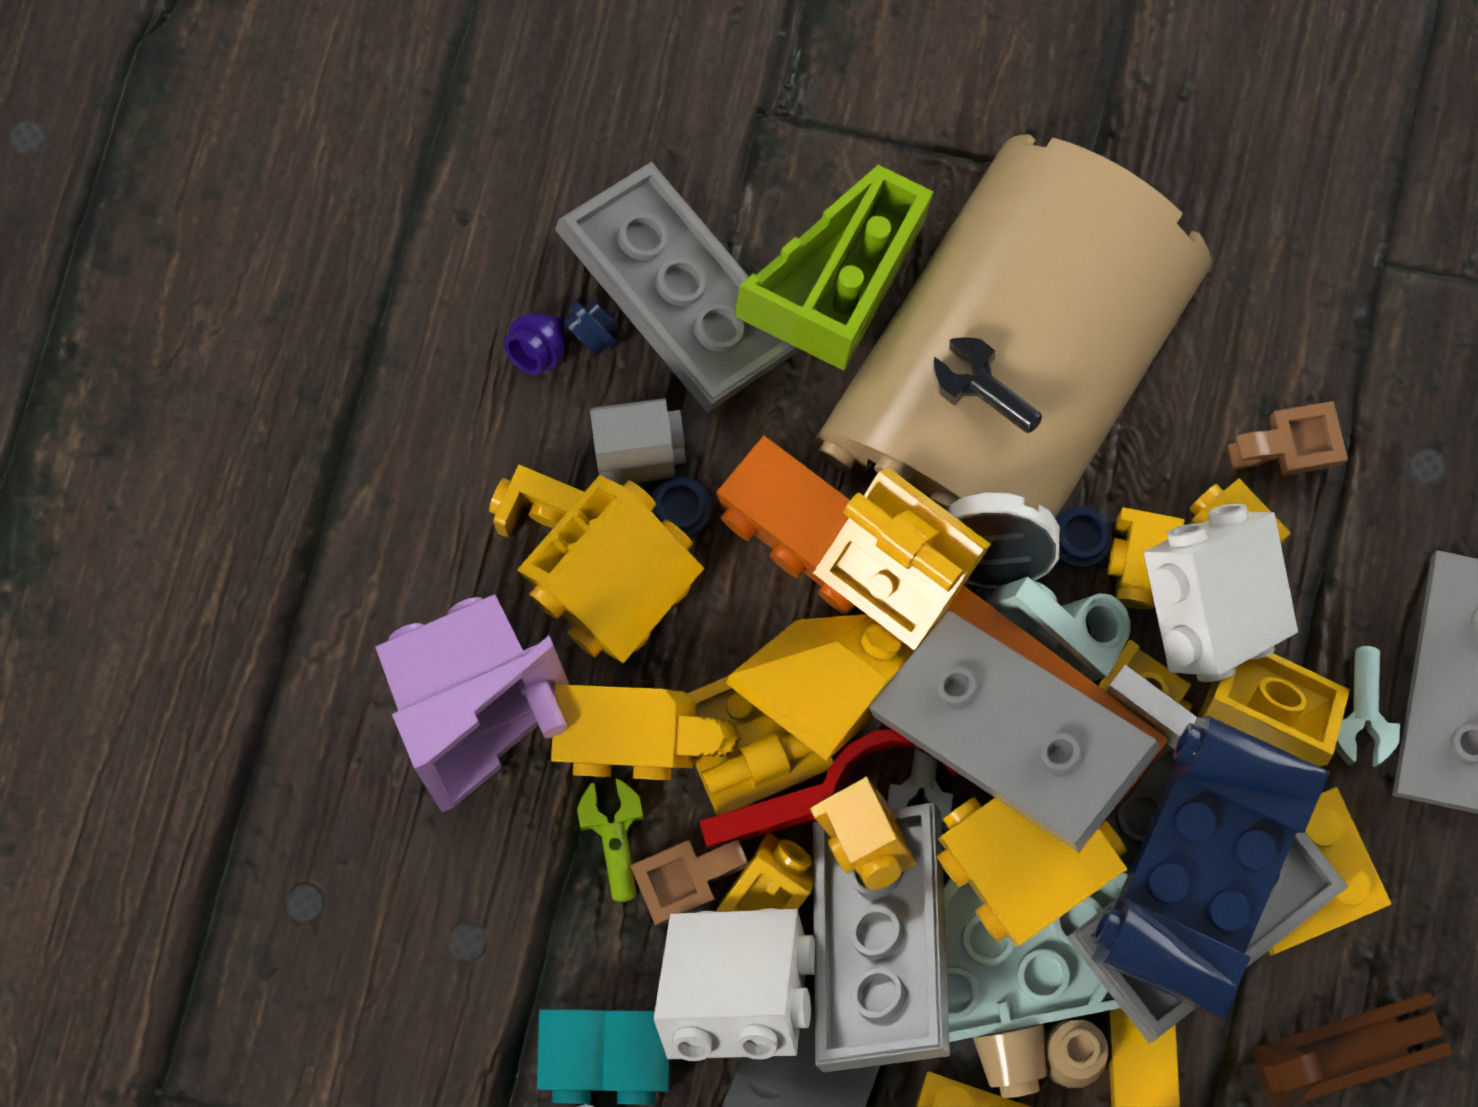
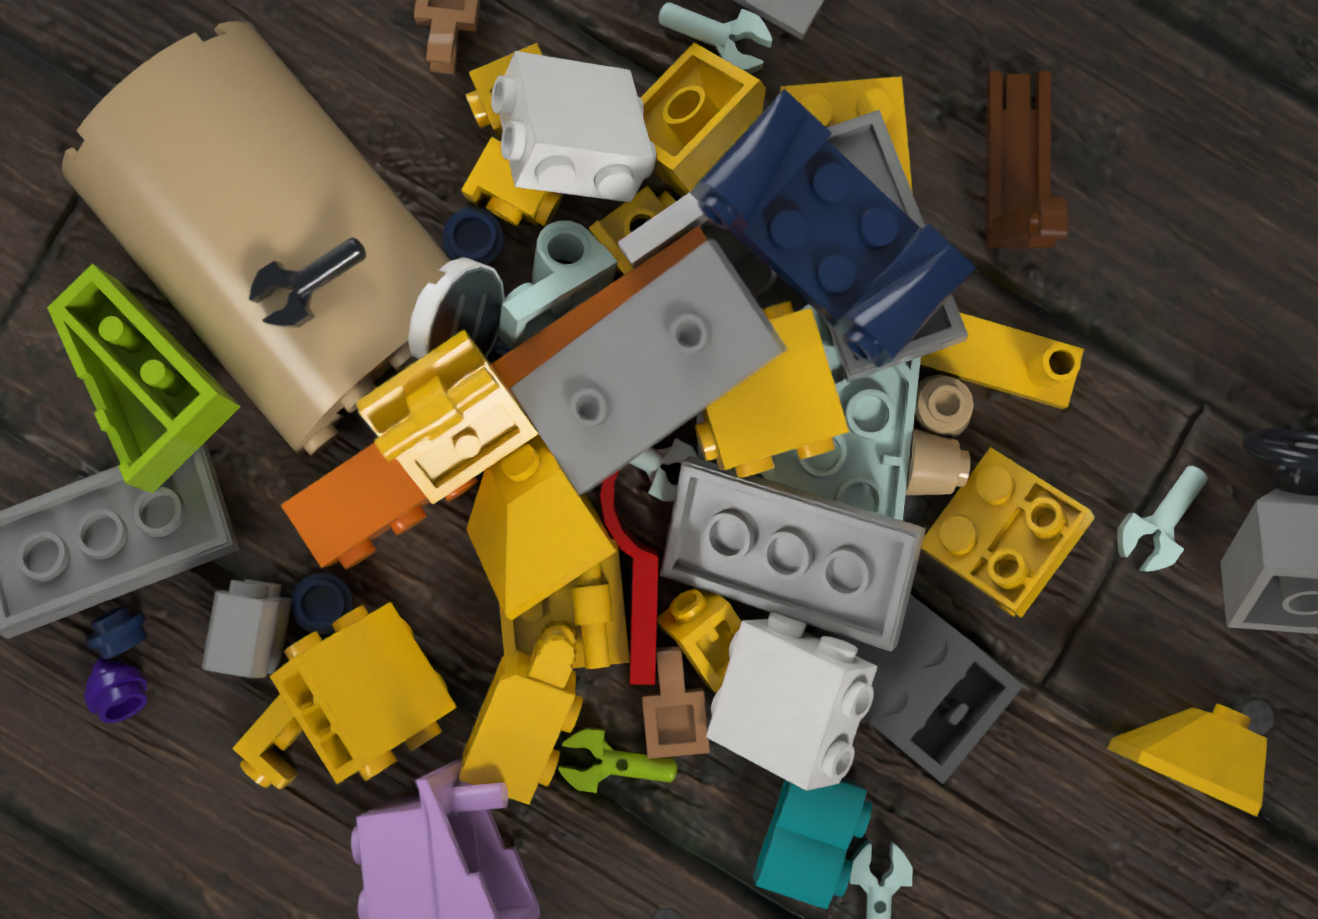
camera: 70 degrees left, 10 degrees up
(864, 834) = (694, 535): yellow brick -> none

